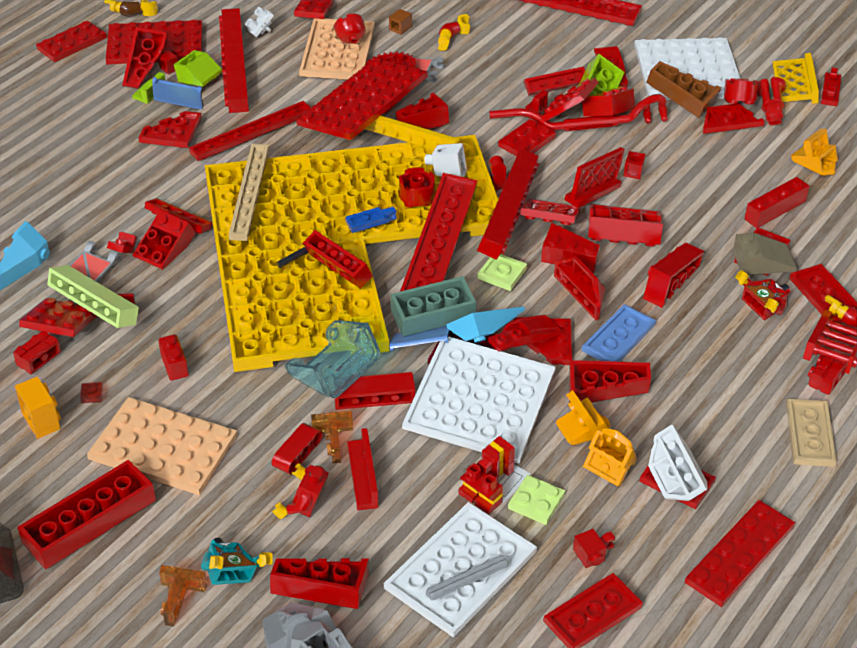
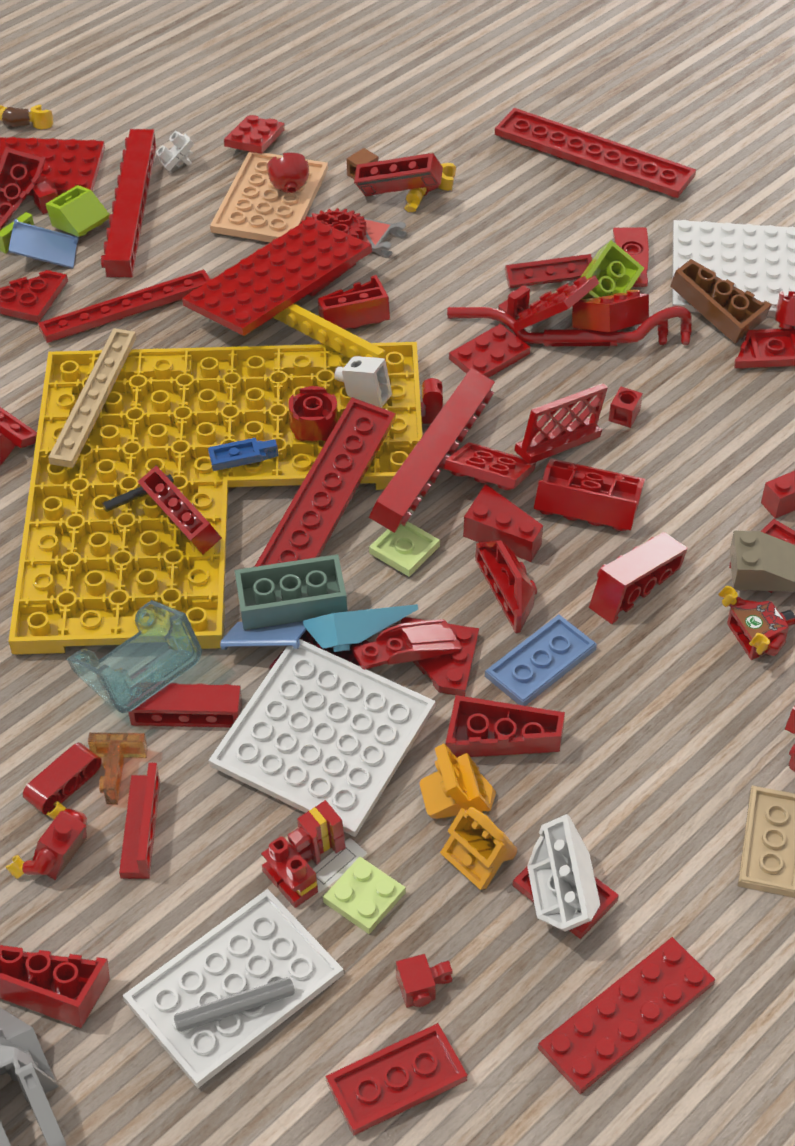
camera: 10 degrees right, 5 degrees up
(431, 24) = (398, 174): none -> red brick

